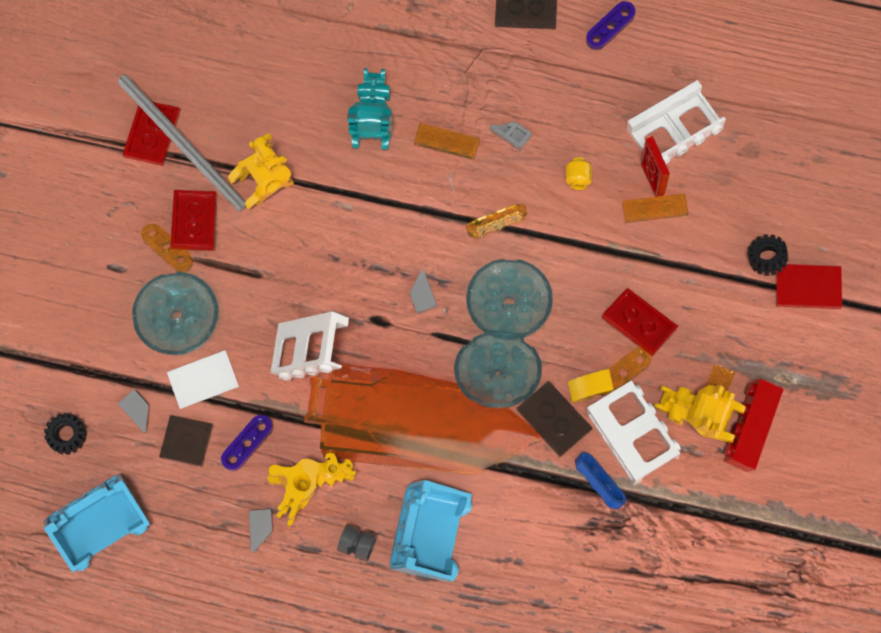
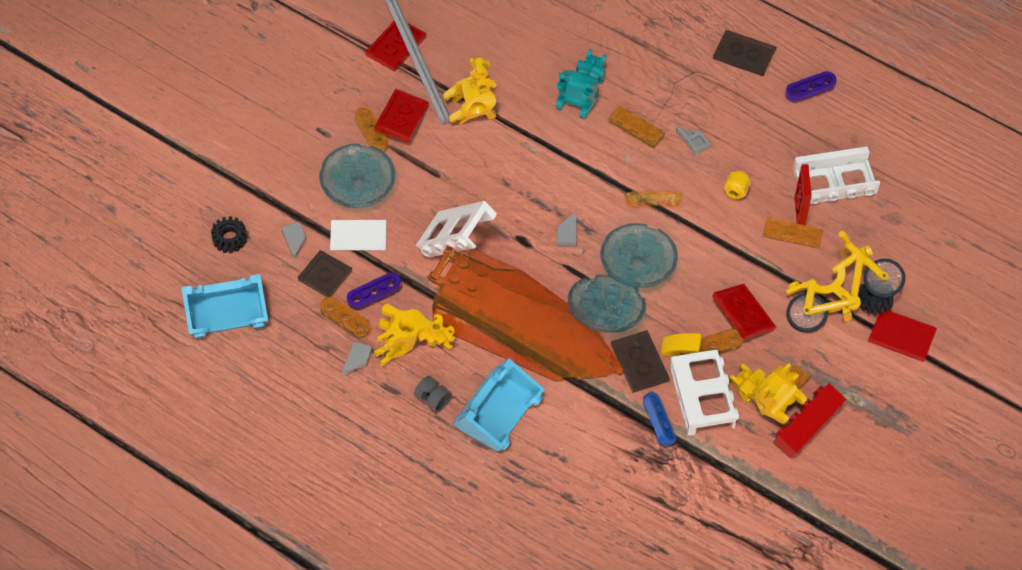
camera: 15 degrees right, 15 degrees down
(221, 479) = (342, 311): none -> clear yellow plate
(770, 235) = (881, 278): none -> piece

